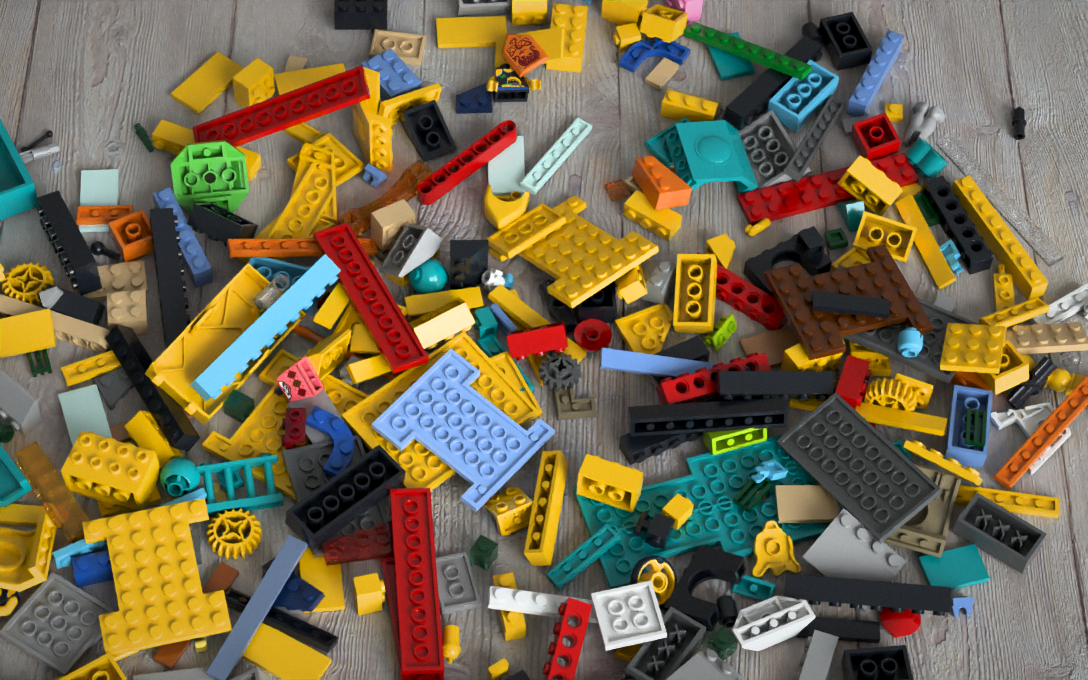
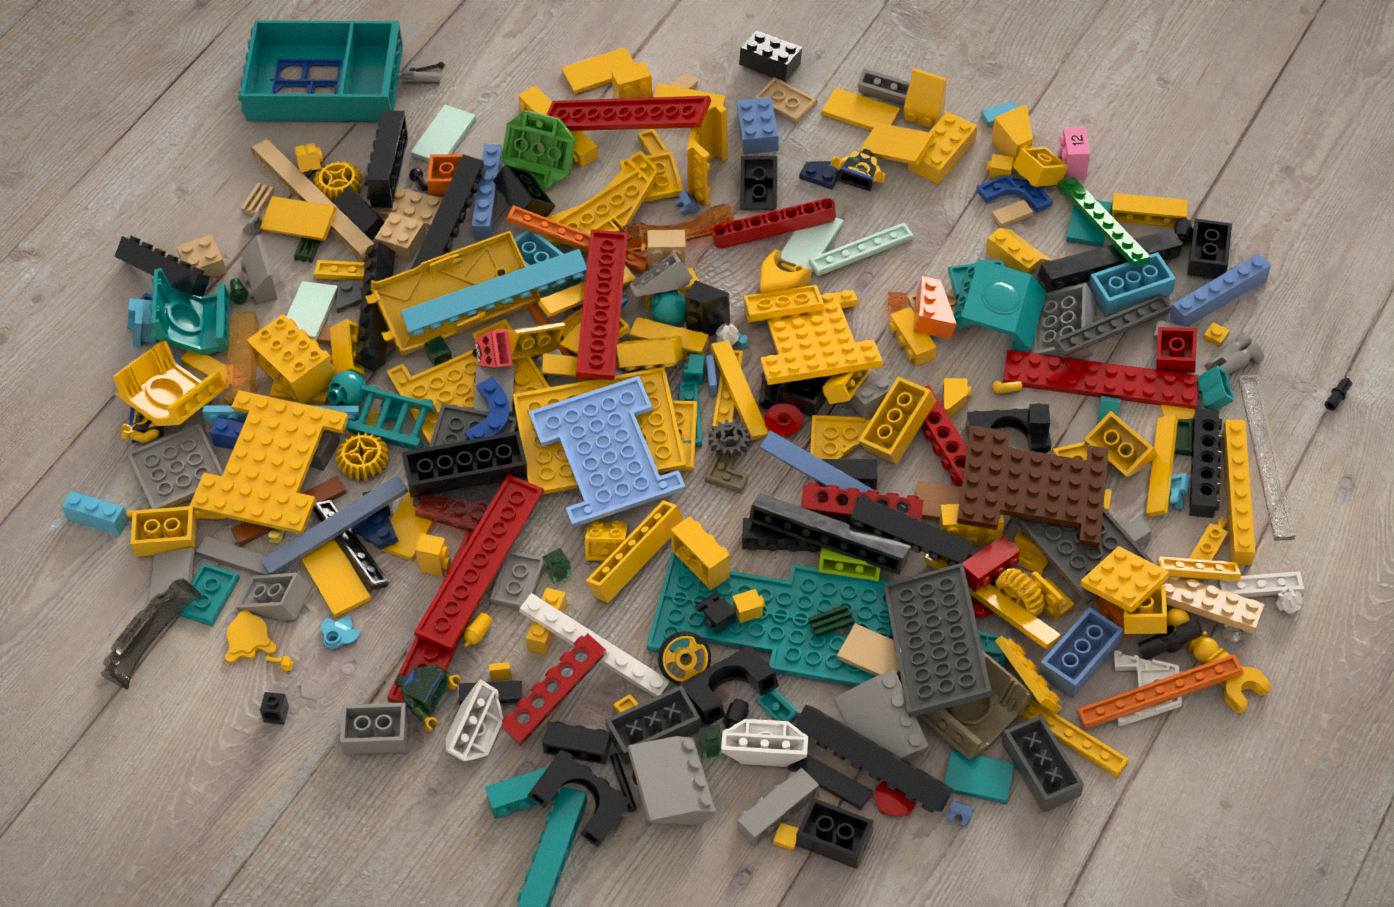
camera: 35 degrees right, 0 degrees up
(50, 296) = (341, 196): light grey slope -> none
(101, 214) = (431, 145): orange tile -> none
(143, 136) = (515, 91): clear green animal -> none
(271, 292) = (513, 262): clear piece -> none
(294, 427) = (463, 387): dark red bracket -> none
(394, 107) = (734, 149): yellow wing -> none
(522, 53) = (886, 145): orange tile -> none
(537, 340) = (725, 402): brick -> none
(583, 556) = (640, 608): teal tile -> none
(628, 615) = (636, 674): white plate -> none
(724, 329) = (906, 468): lime hinge -> none
(769, 469) = (859, 607): medium azure plate -> none
(773, 26) = (1147, 210): none -> yellow brick
(774, 551) = (815, 681): yellow tile -> none
(836, 239) = (1074, 428): dark green plate -> none
(850, 304) = (1028, 488): black tile -> none
(870, 186) = (1135, 390): yellow brick -> none
(910, 342) = (1066, 548): medium azure head -> none
(976, 414) = (1089, 642): dark green tile -> none

